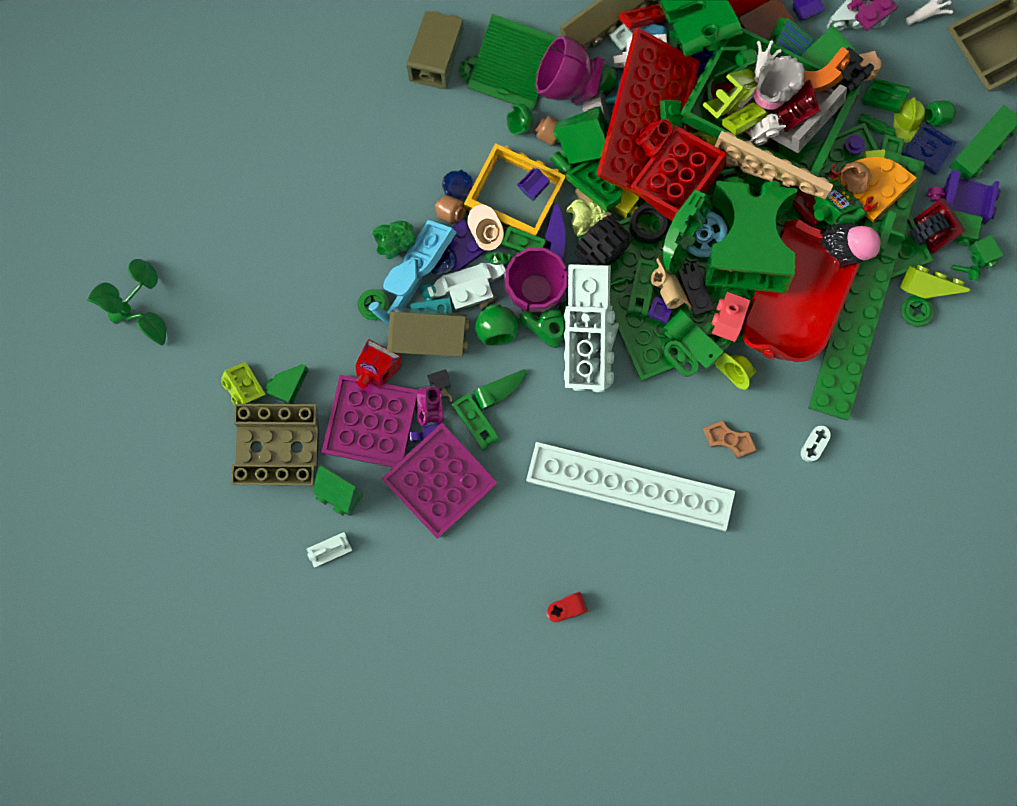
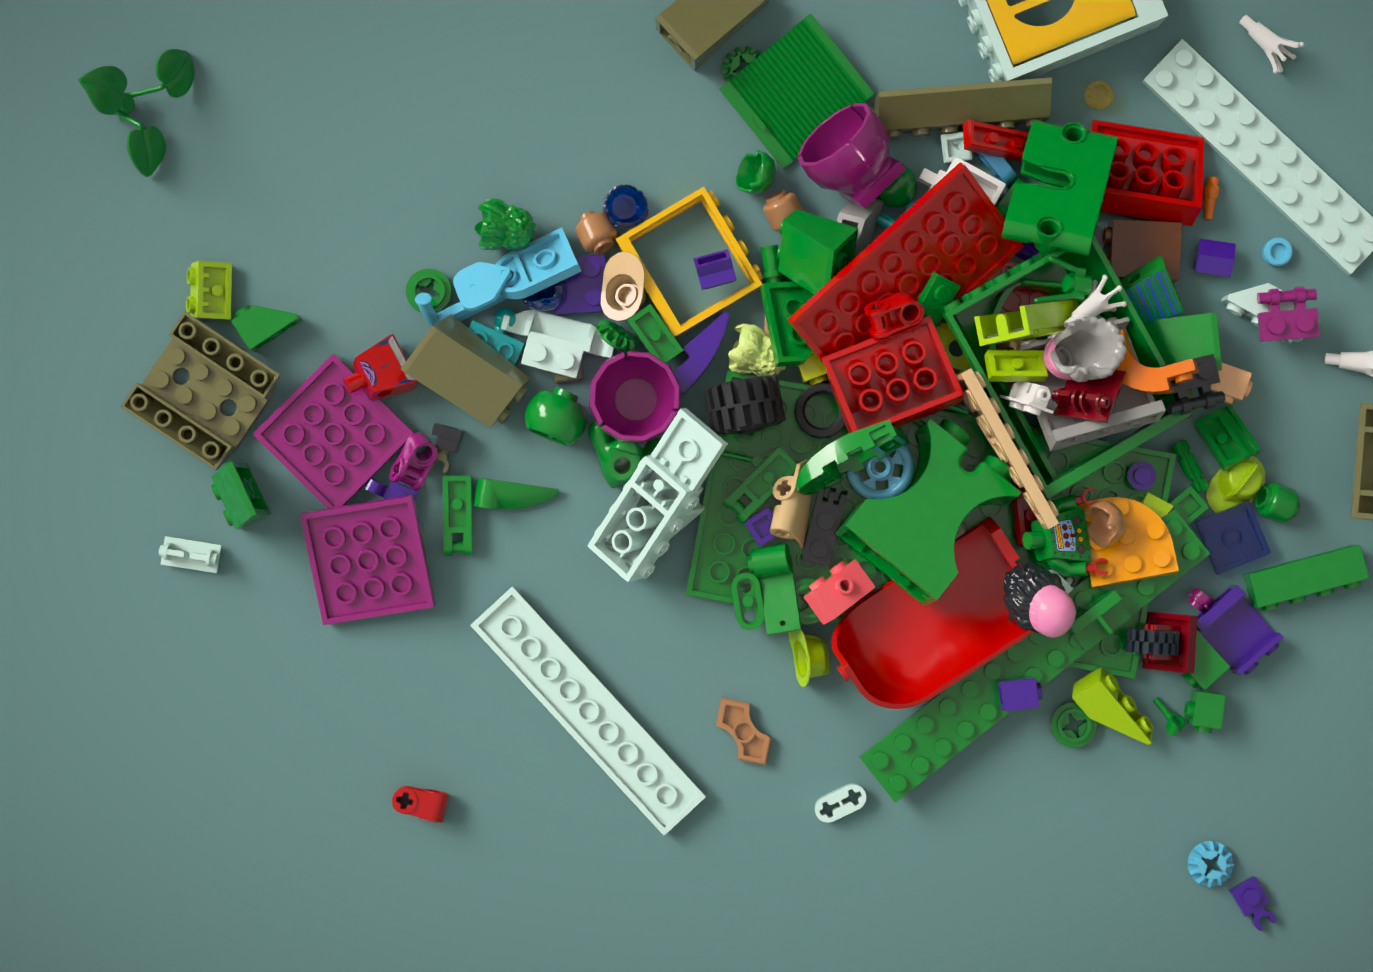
camera: 30 degrees right, 10 degrees up
(876, 306) = (1019, 693): none -> dark purple brick

